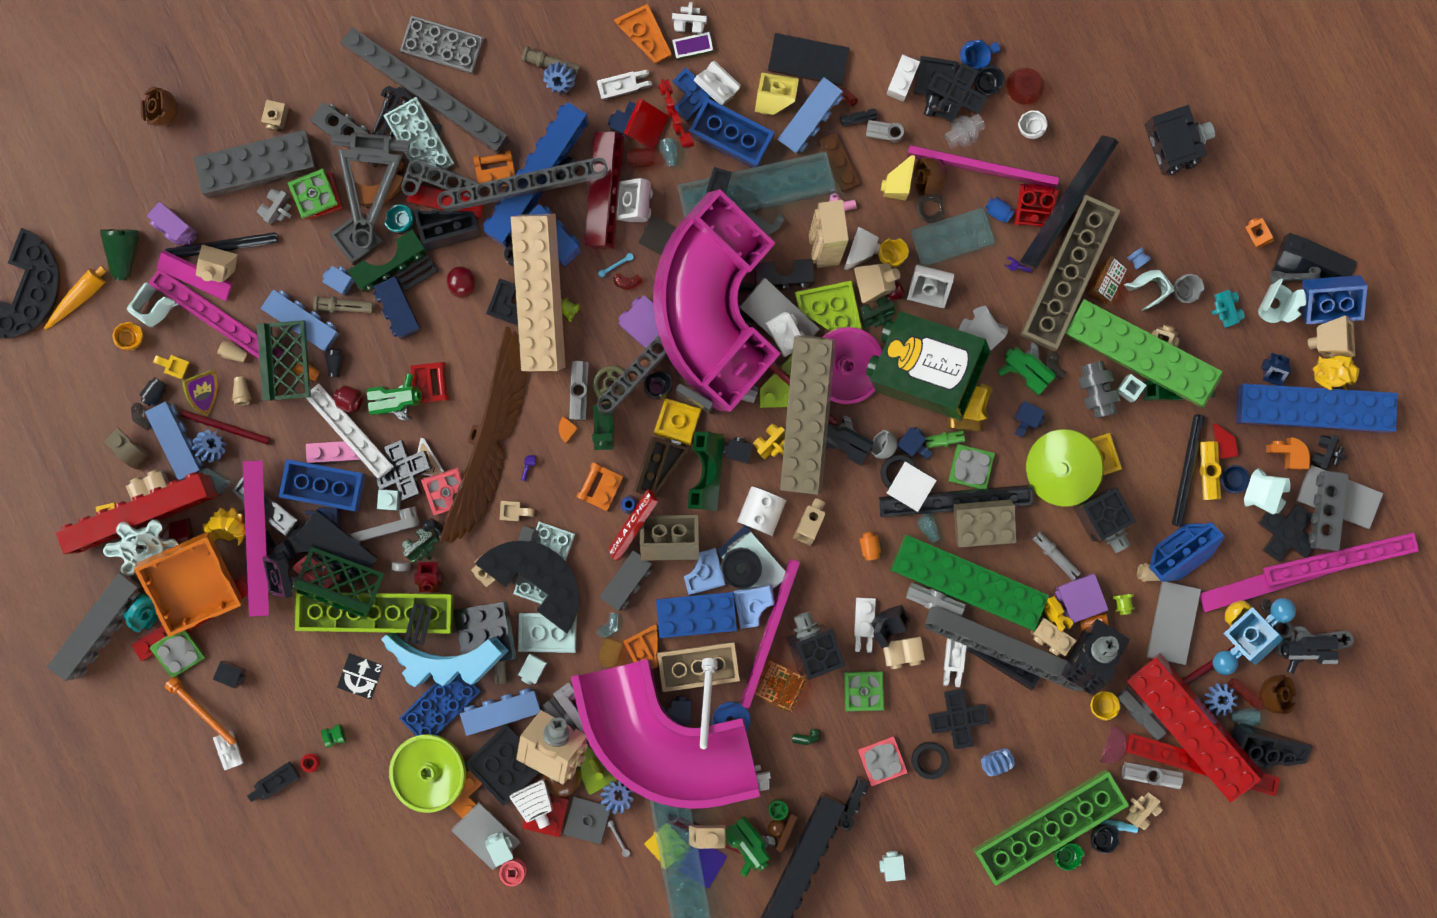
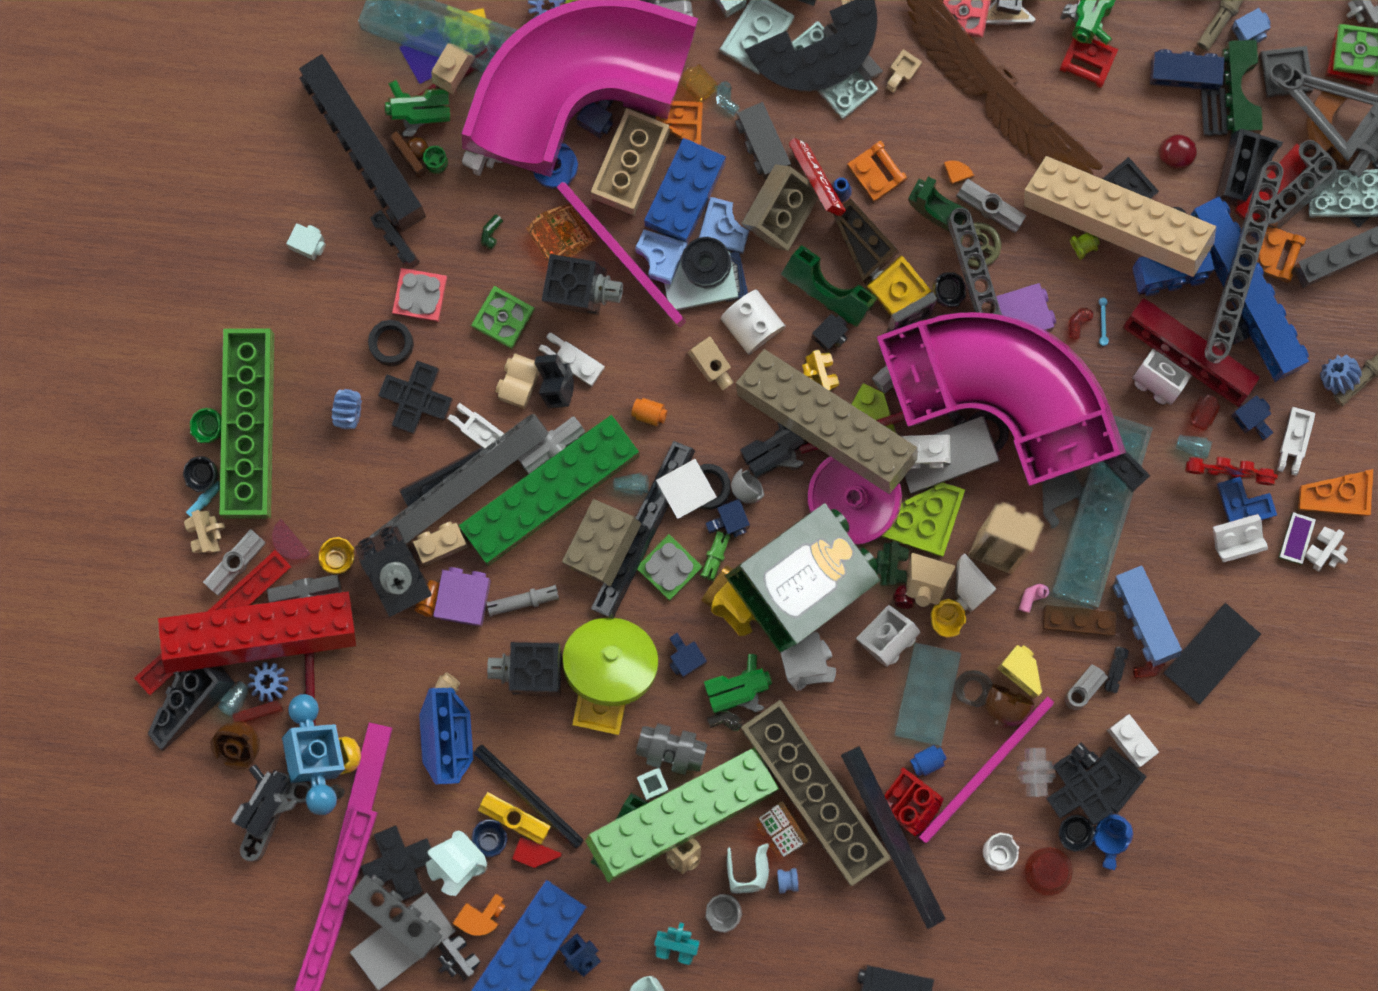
camera: 120 degrees right, 5 degrees down
(399, 218) = (1281, 124): teal hair -> none
(530, 460) = (946, 114): dark purple hand -> none
(646, 124) = (1237, 436): red tile -> none
(656, 235) = (1113, 381): clear smoke piece -> none
(709, 667) = (623, 166): white piece -> none
(731, 133) = (1176, 520): blue brick -> none
(775, 93) = (1195, 594): light yellow slope -> none
(802, 274) = (981, 505): black arch -> none
(1015, 265) = (857, 741): dark purple hand -> none
(1055, 612) = (464, 559): yellow plate -> none
(1124, 603) = (429, 641): lime brick -> none
(1173, 622) = (378, 682): light grey tile -> none

